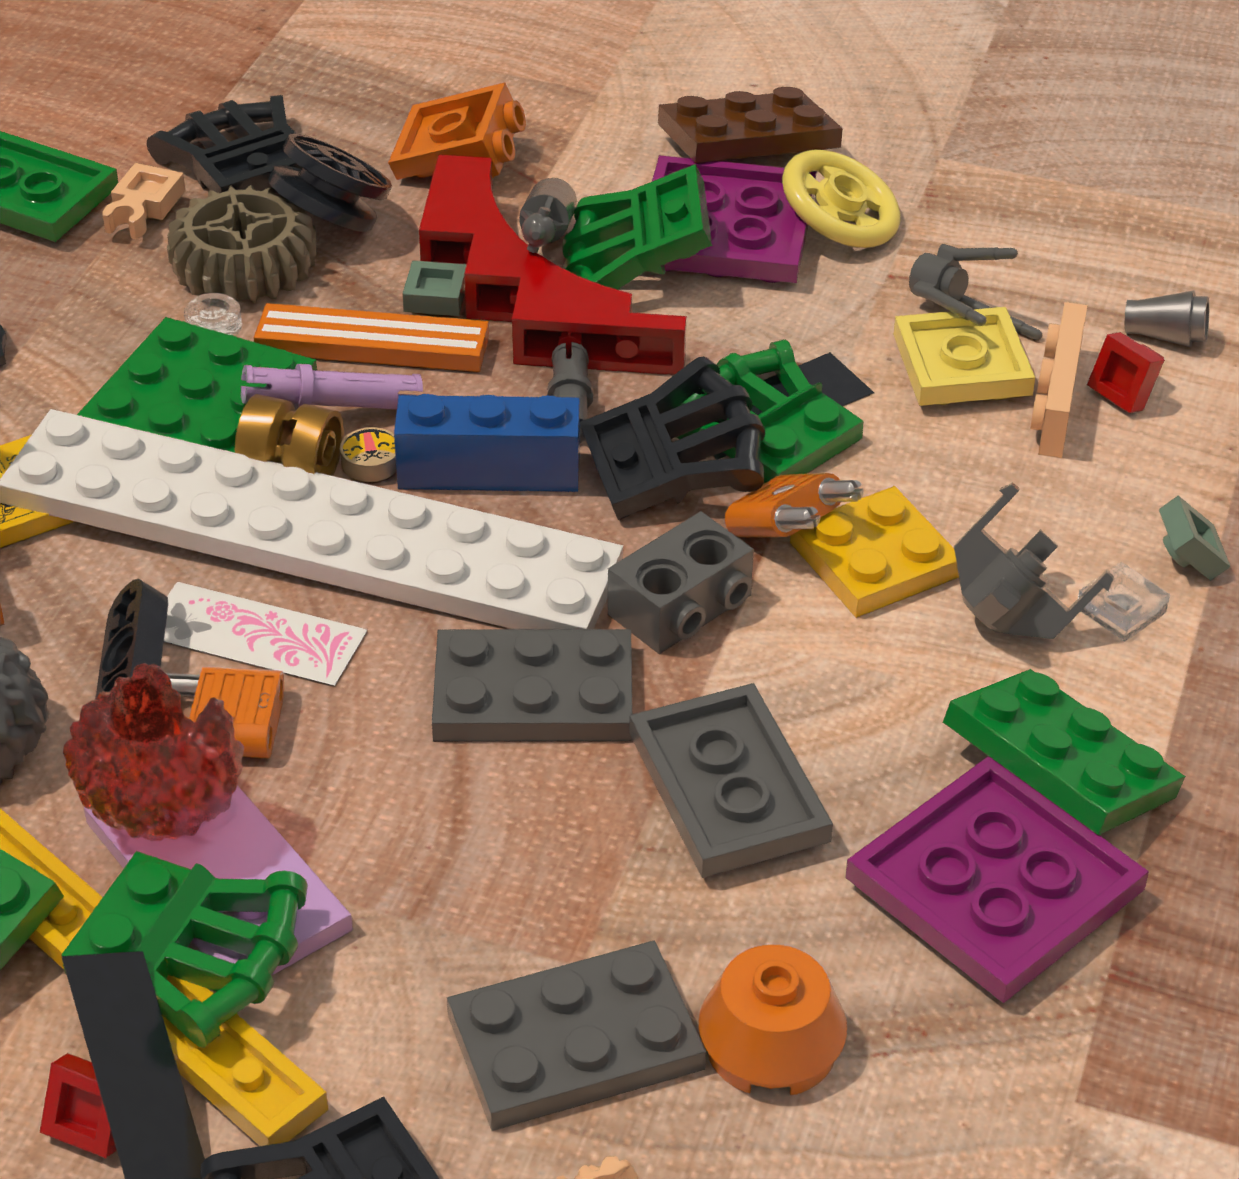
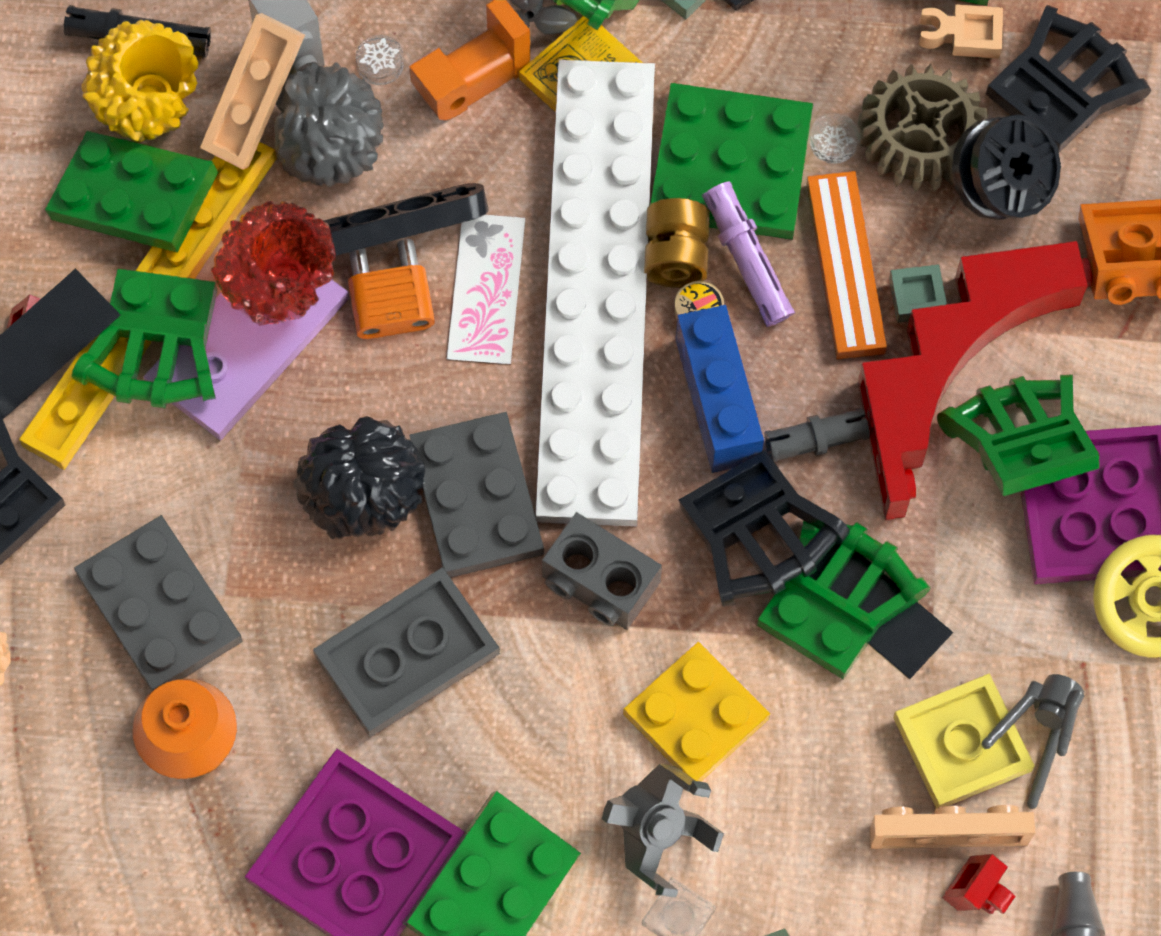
camera: 75 degrees right, 25 degrees up
(484, 761) = (360, 478): none -> black hair
(547, 212) = (1026, 352): dark grey wheel -> none
(789, 504) = (707, 632): orange piece -> none

